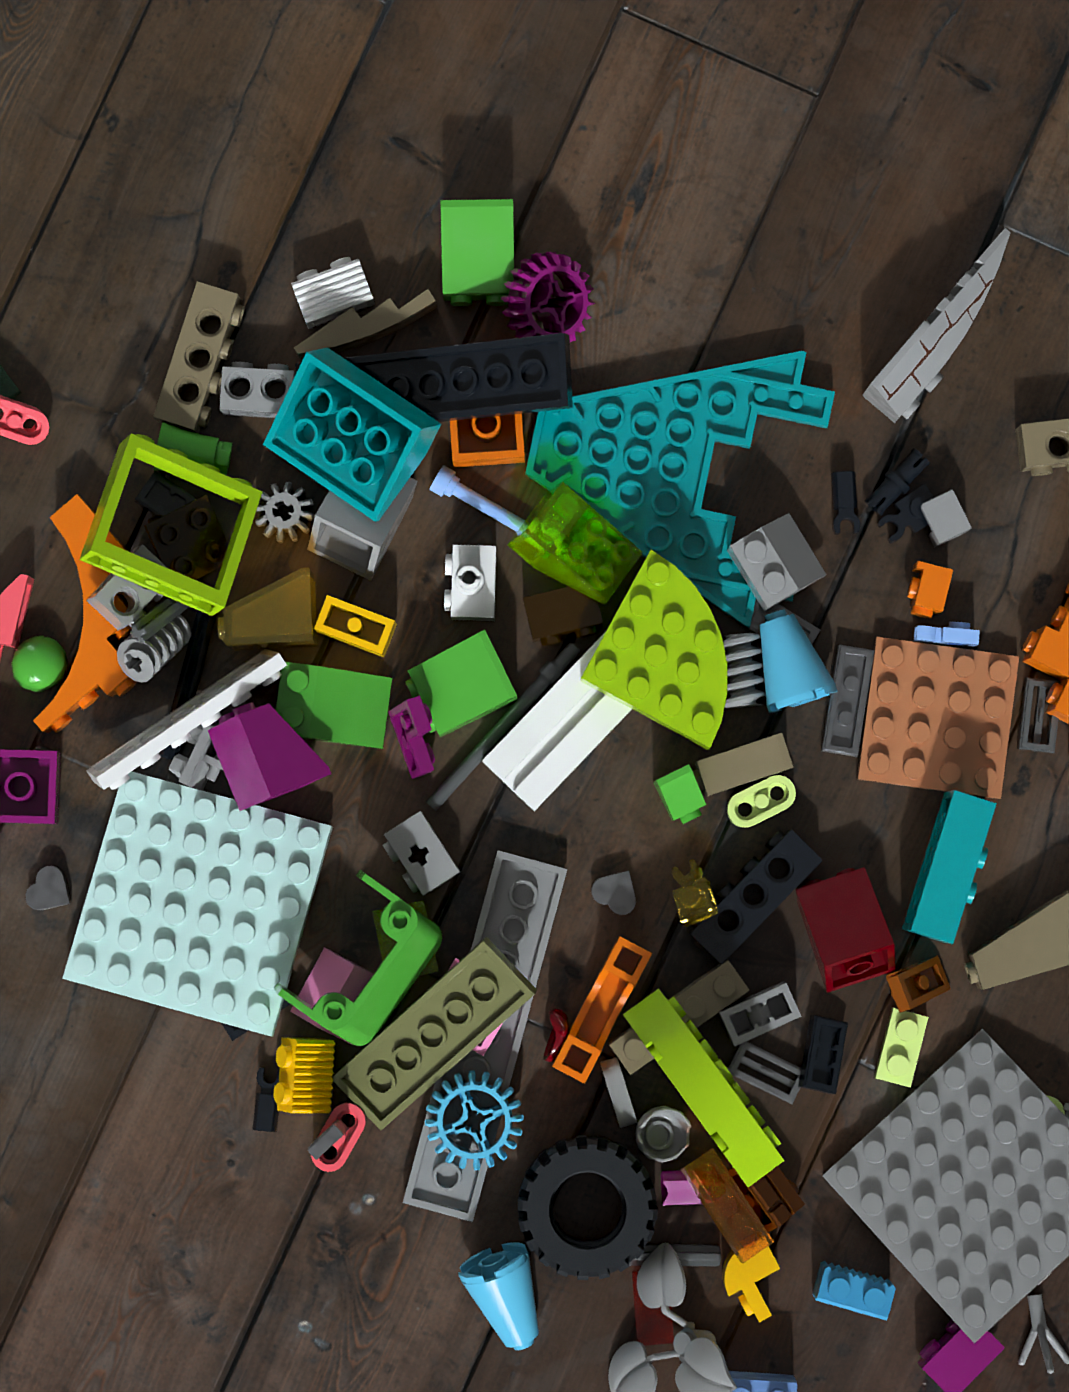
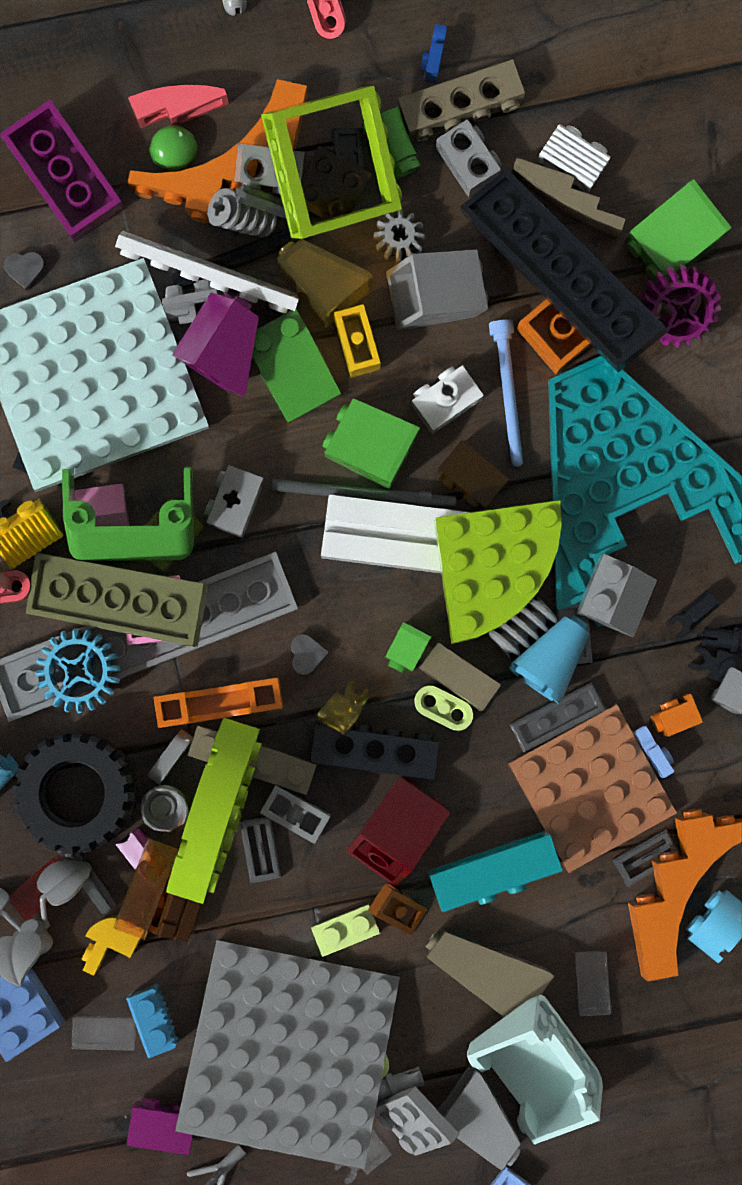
camera: 45 degrees right, 0 degrees up
(139, 357) = (432, 59): none -> blue plate
(350, 432) = (487, 236): teal slope -> none
(411, 722) = (319, 427): magenta plate -> none
(558, 1034) = (187, 680): dark red piece -> none
(575, 545) = (524, 449): clear neon green slope -> none
(823, 1054) = (300, 879): black plate -> none
(831, 1346) = (103, 1033): none -> clear plate

